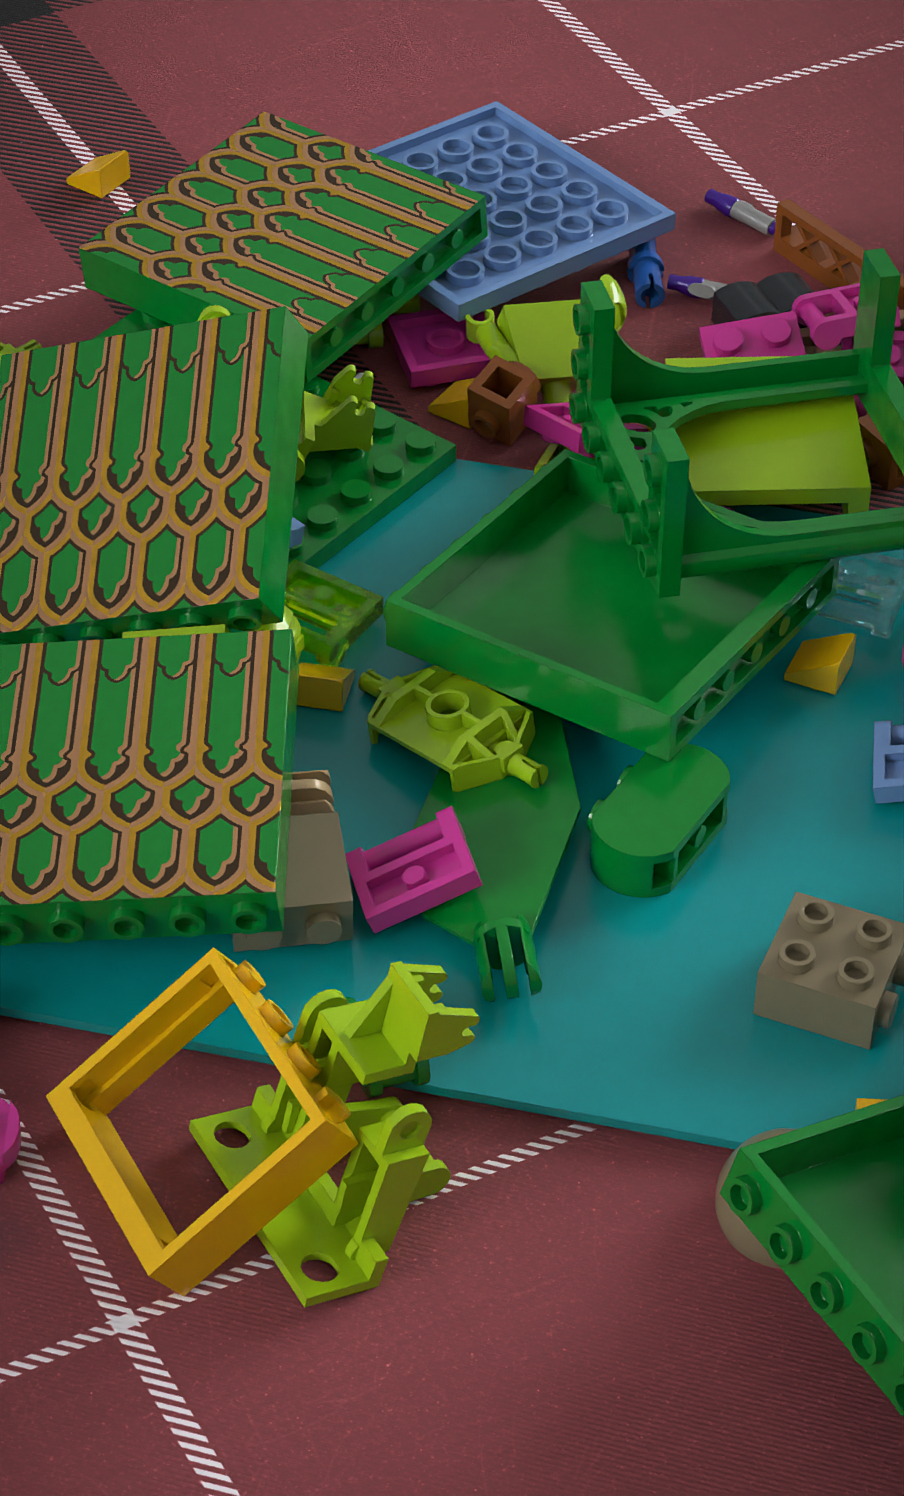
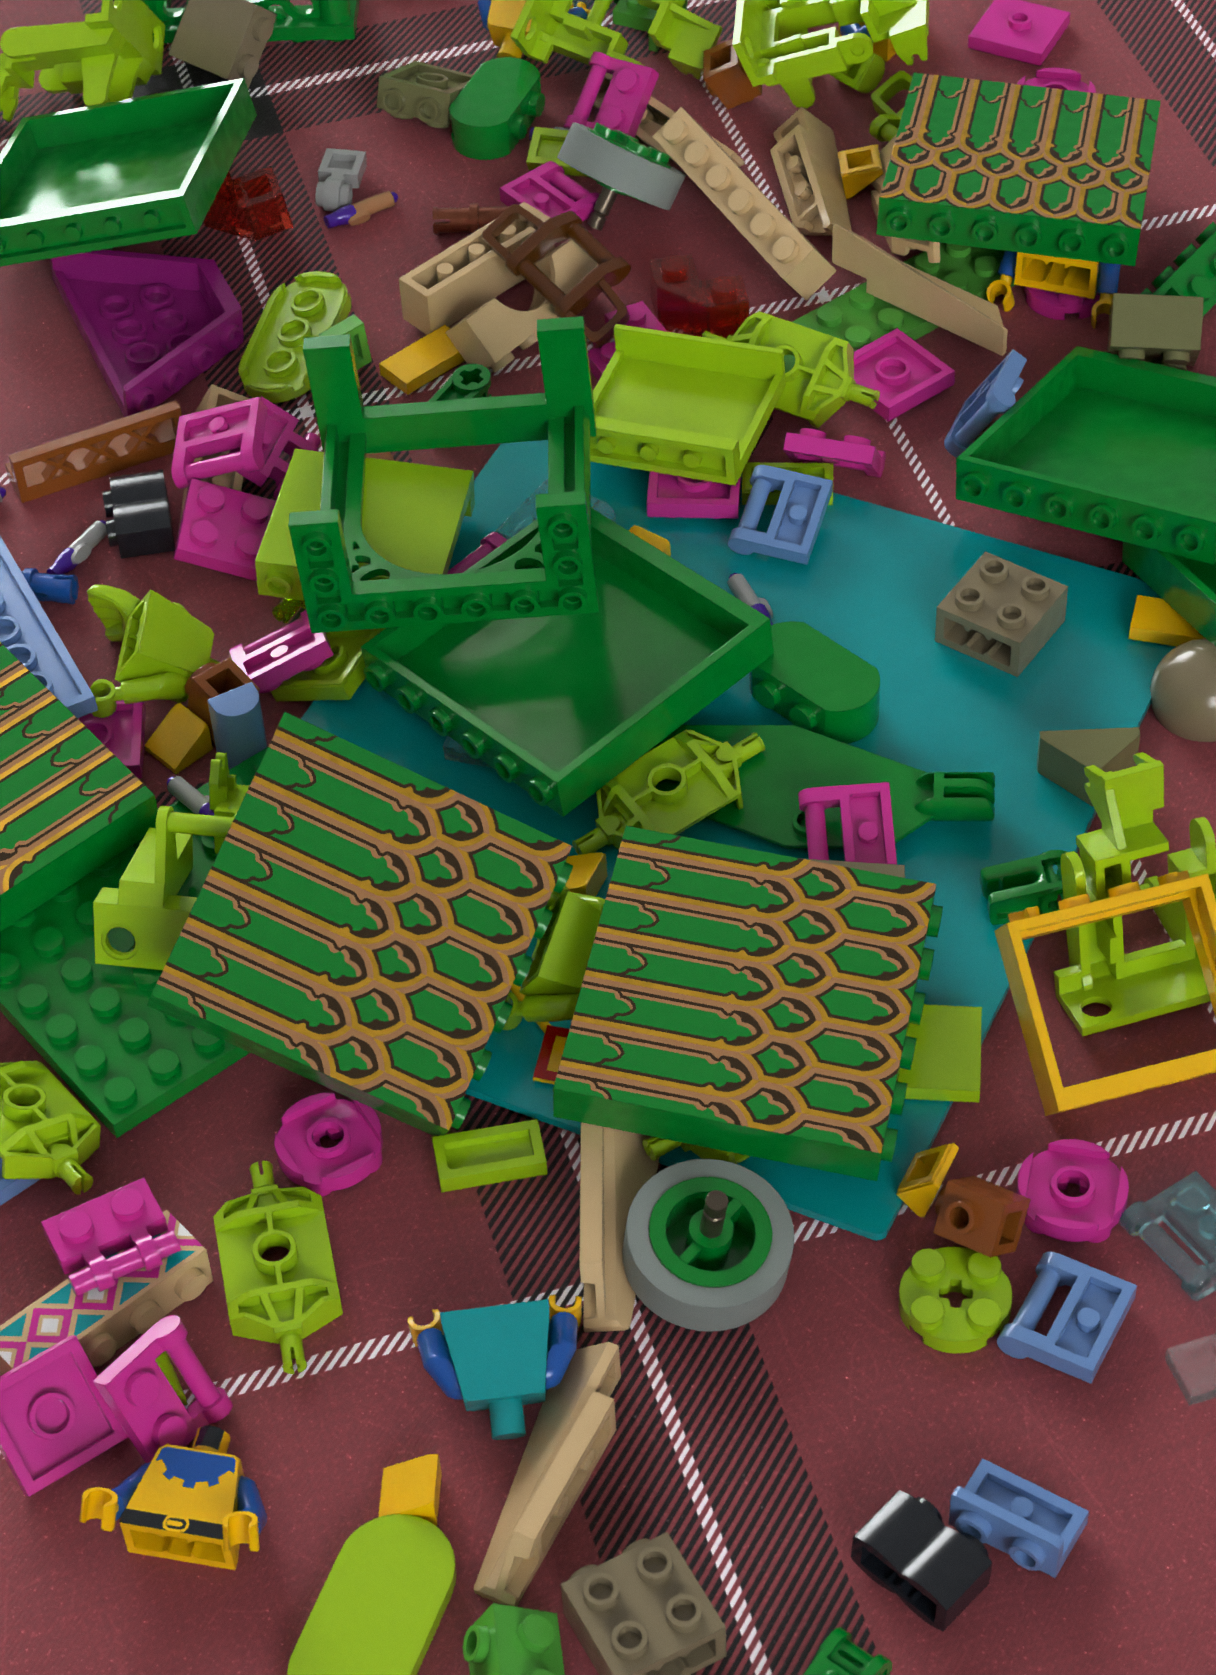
camera: 75 degrees left, 5 degrees up
(116, 980) = (945, 1055): none -> lime tile
(457, 408) = (238, 723): none -> medium blue brick
(597, 1077) = (1067, 752): none -> olive slope
(785, 765) = (744, 592): none -> light grey piece

